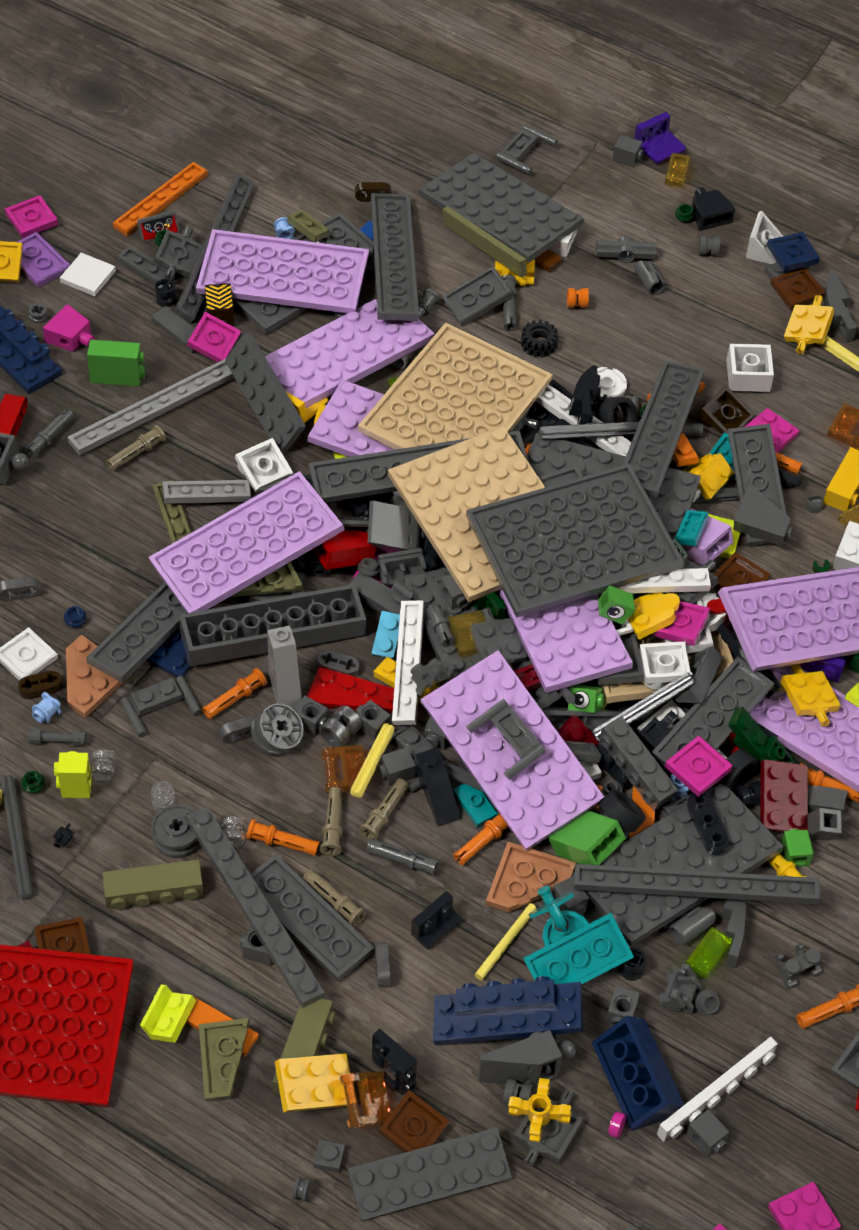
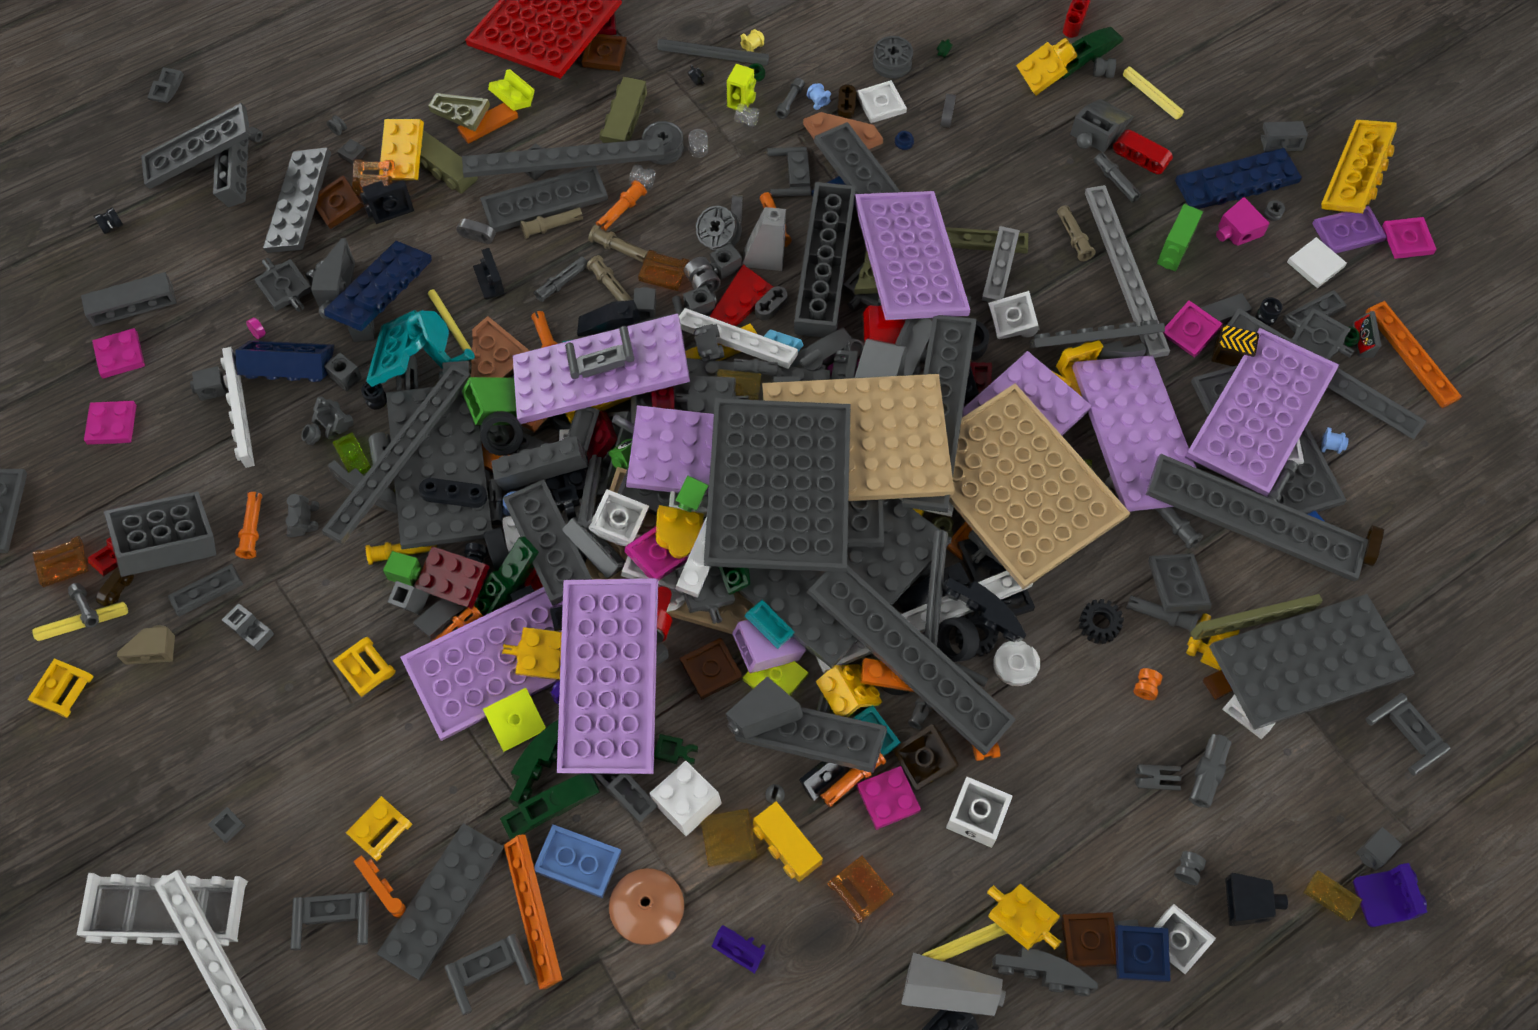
camera: 115 degrees right, 10 degrees up
(308, 225) = (1326, 456): olive plate -> none
(372, 760) = (655, 283): light yellow axle -> none
(540, 1100) = (290, 272): yellow pin -> none
(684, 213) = (1258, 864): dark green plate -> none
(698, 766) = (502, 500): dark pink plate -> none

